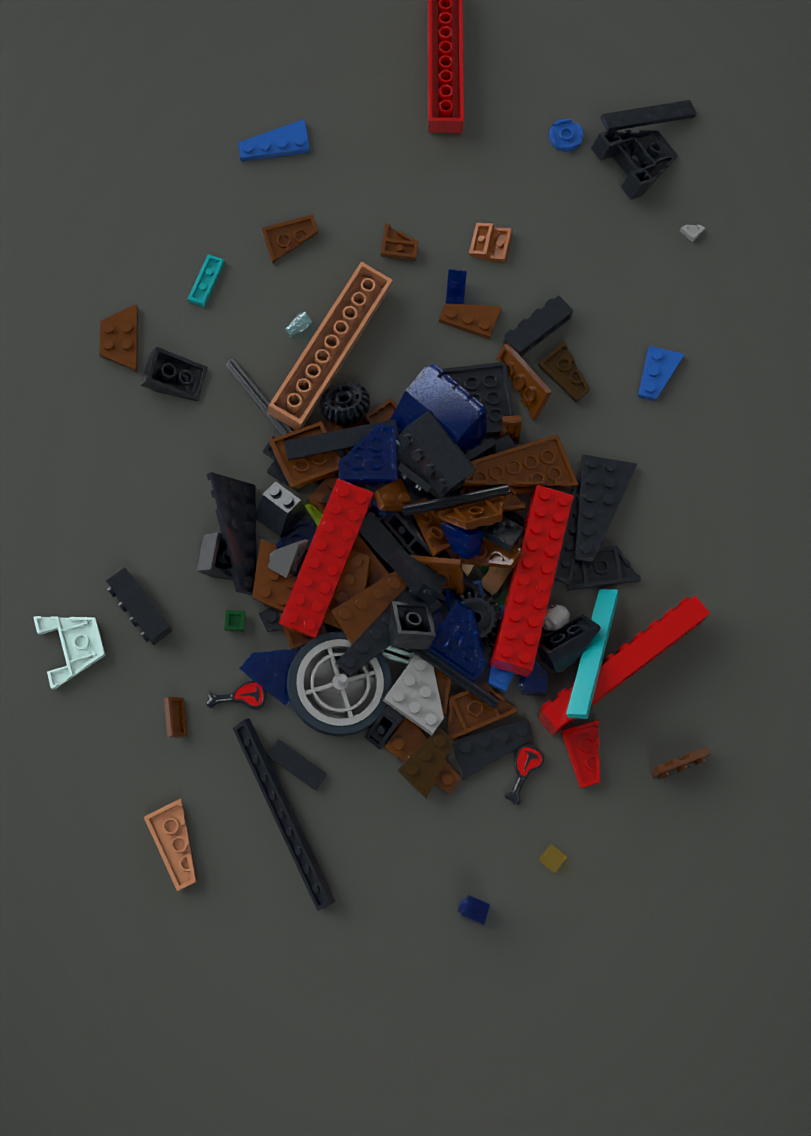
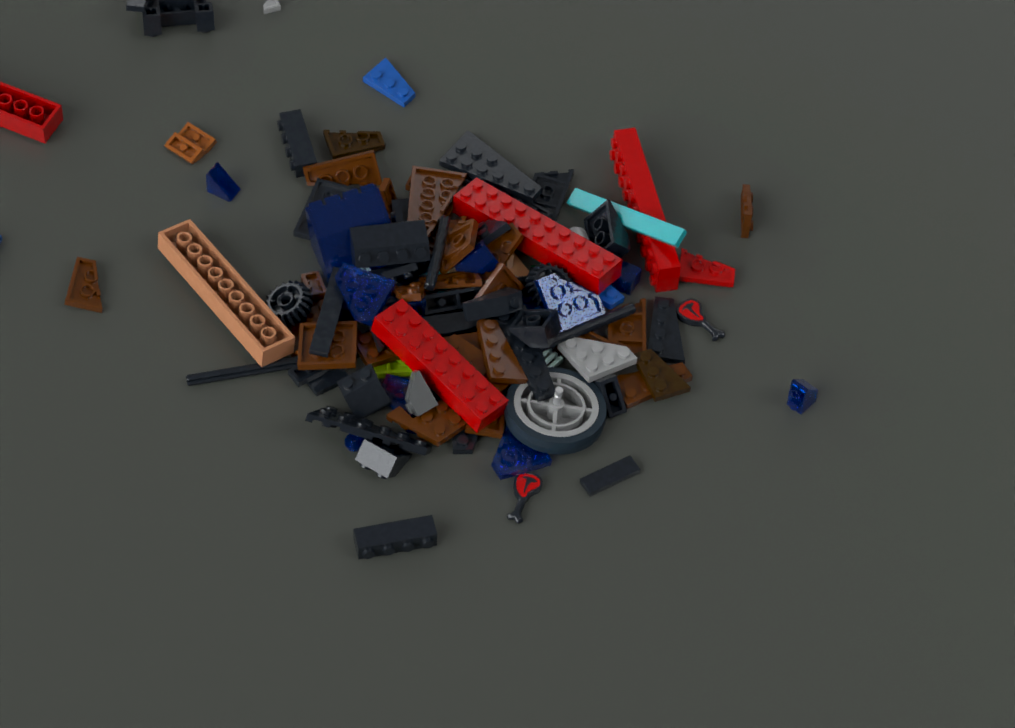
camera: 65 degrees left, 20 degrees down
(79, 641) = (403, 597): light aqua wing -> none
(120, 338) = (106, 458): reddish brown wing -> none
(172, 840) = (627, 592): nougat wing -> none
(173, 375) = (173, 427): black slope -> none
(175, 717) = (519, 548): reddish brown plate -> none
(206, 280) = (88, 368): teal tile -> none
(234, 620) = (450, 469): dark green plate -> none
(283, 815) = (649, 499): black plate -> none
(298, 324) = (182, 310): clear light blue cone -> none
(398, 245) = (149, 209): reddish brown wing -> none
(471, 318) = (257, 187): reddish brown wing -> none
(552, 858) = (783, 329): clear yellow tile -> none
(566, 135) = (117, 49): blue tile -> none

